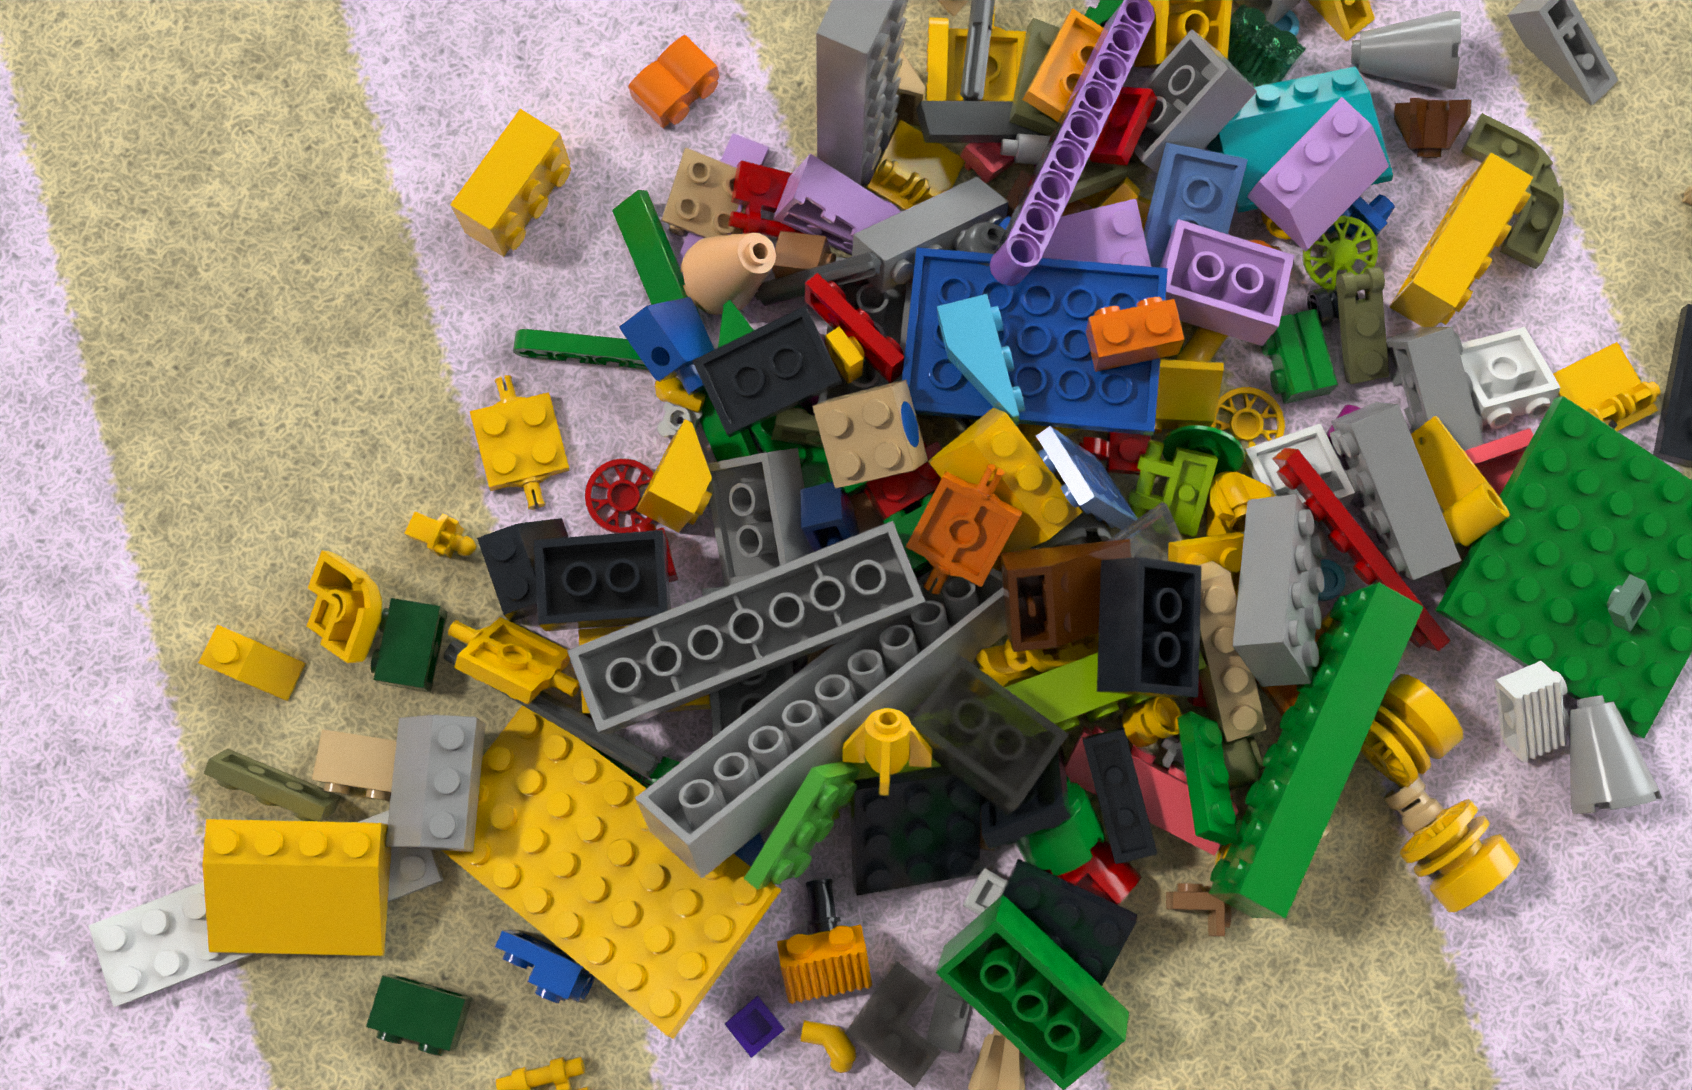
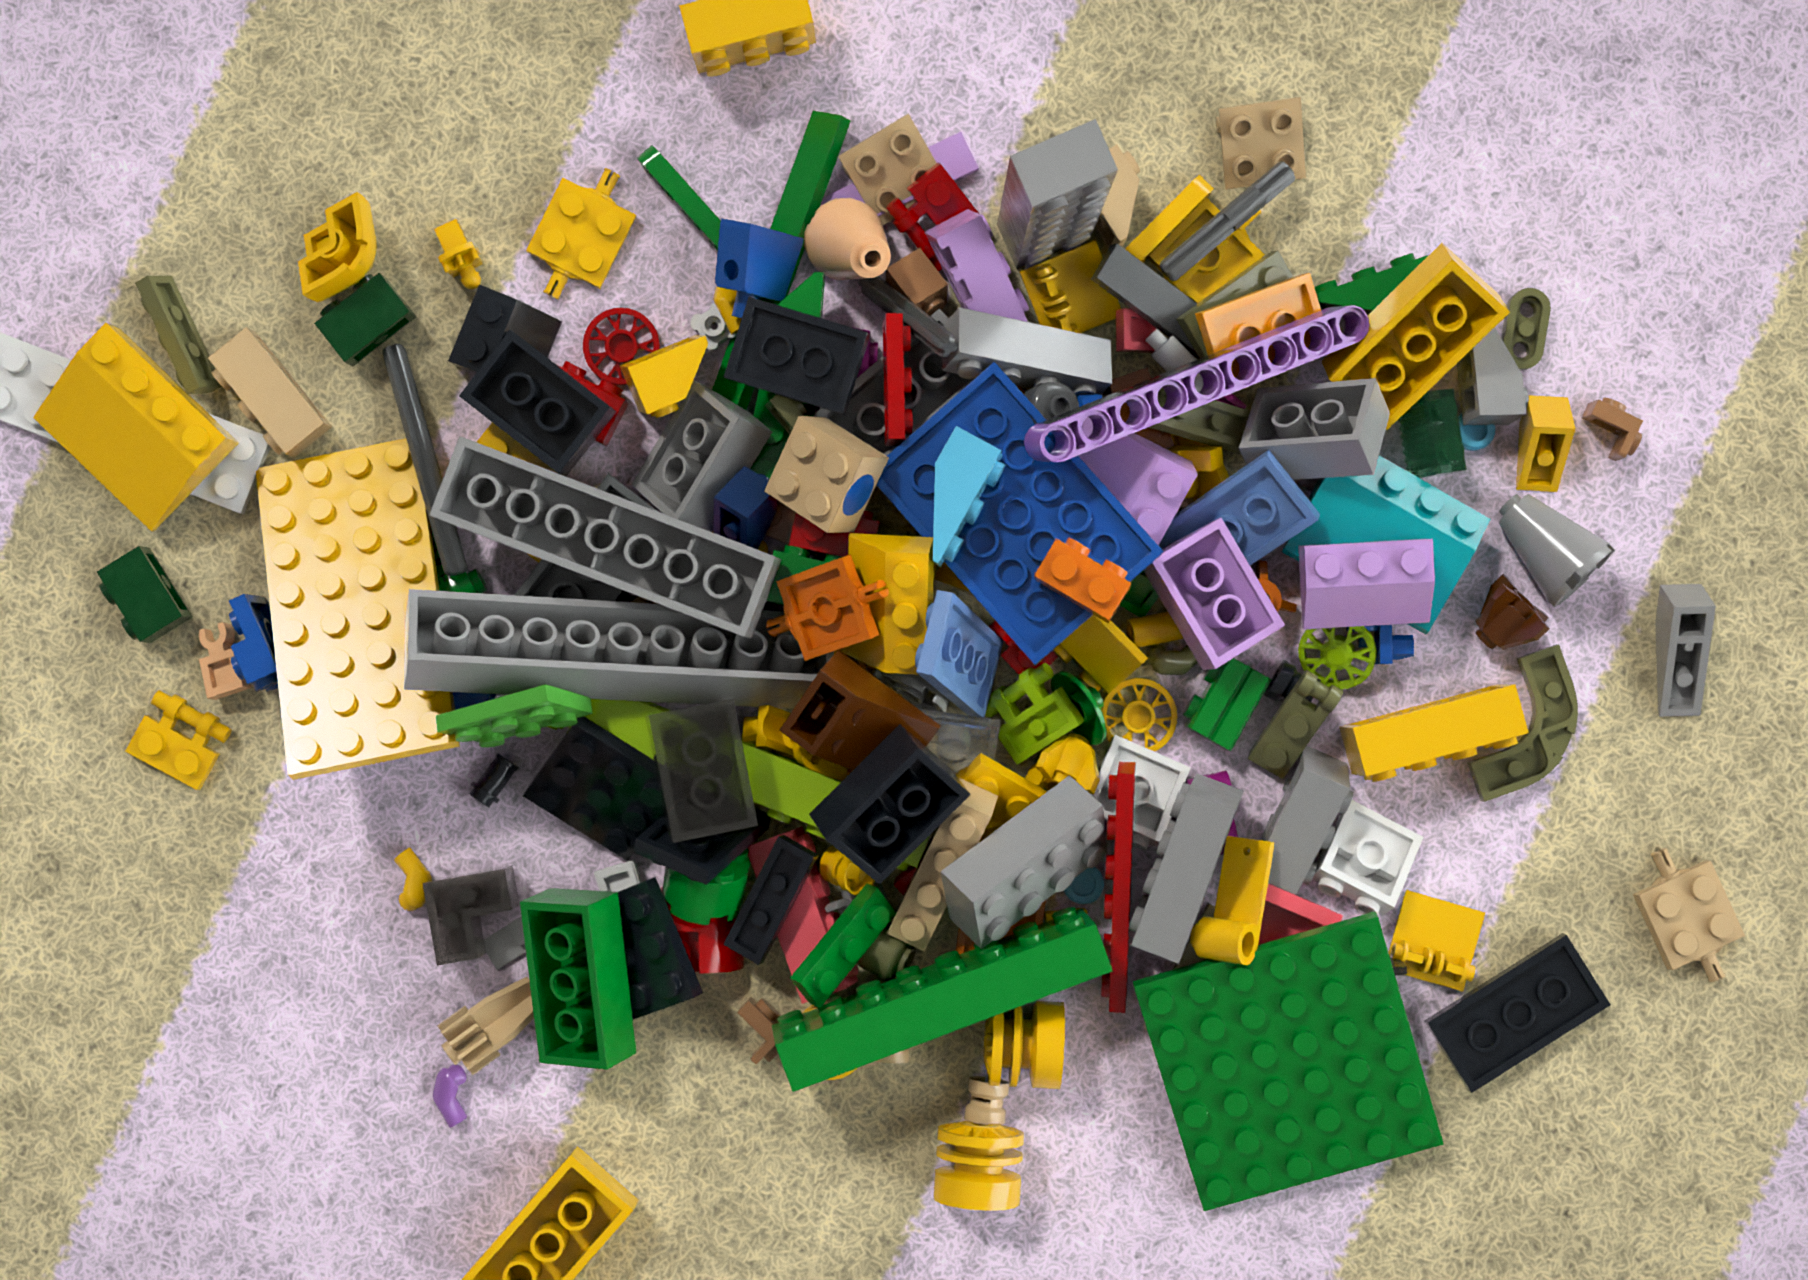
camera: 50 degrees right, 10 degrees up
(252, 662) = (240, 228): yellow slope -> none
(436, 783) = (290, 444): light grey slope -> none
(512, 660) = (426, 399): yellow plate -> none
(532, 1014) = (216, 668): none -> light nougat plate
(675, 82) = (952, 49): orange brick -> none
(754, 1026) = (370, 819): dark purple plate -> none
(824, 963) = (456, 822): light orange brick -> none
(845, 354) = (868, 395): yellow plate -> none
(887, 743) = (621, 715): yellow brick -> none
(1124, 126) = (1251, 406): red plate -> none
(1237, 360) = (1171, 661): none -> olive arm
(1532, 710) = (1135, 1116): white brick -> none
(1605, 760) = (1151, 1200): light grey cone -> none
(1628, 602) = (1275, 1106): sand green plate -> none

